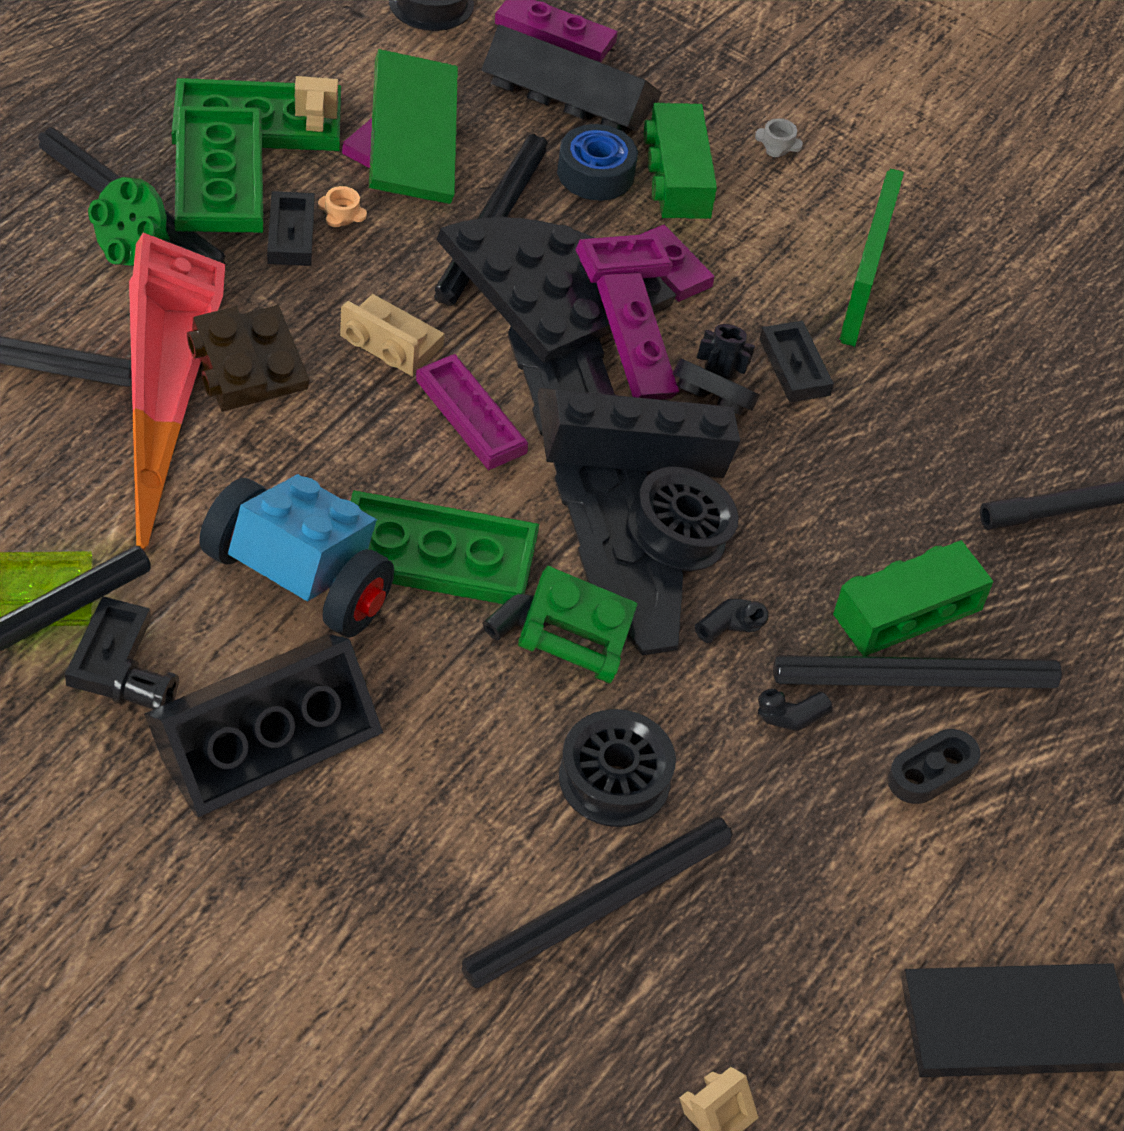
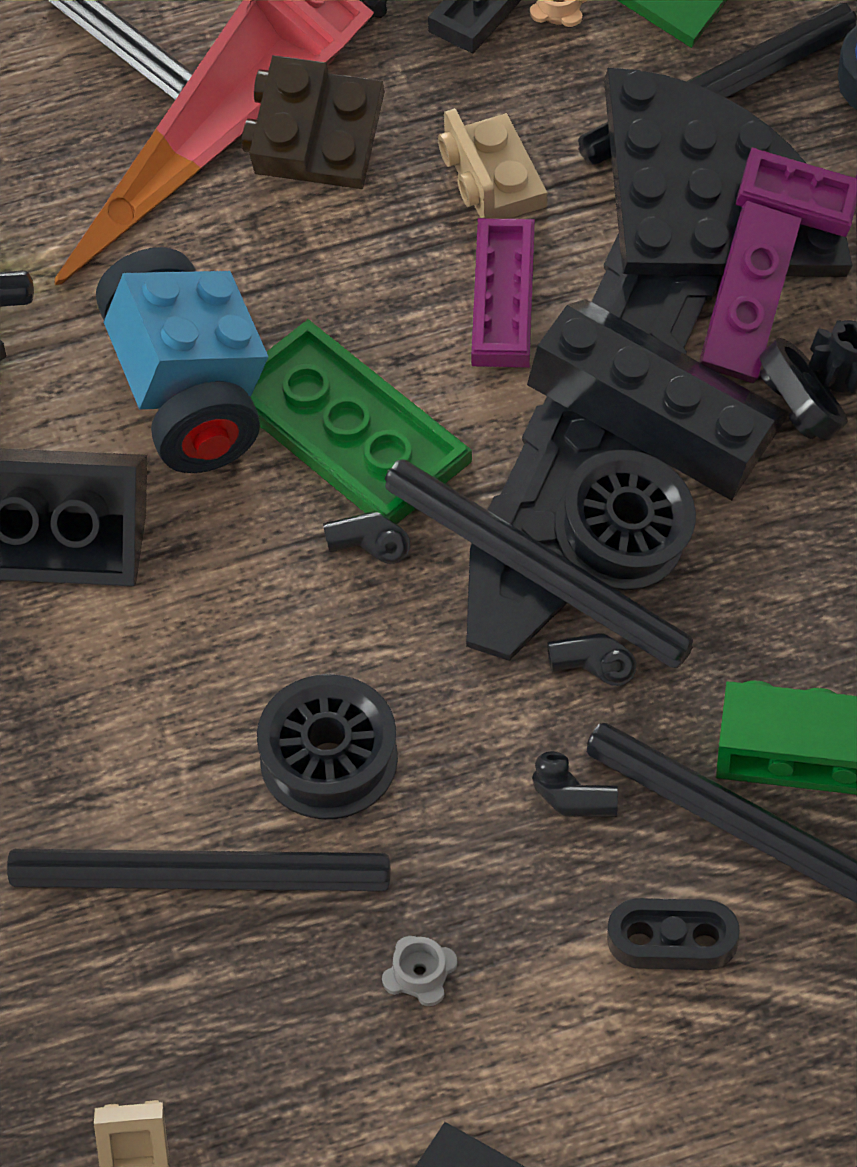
camera: 45 degrees right, 5 degrees up
(584, 612) = (425, 565): green plate -> none
(655, 573) = (539, 563): none -> black axle
(800, 868) = (417, 952): none -> light grey plate

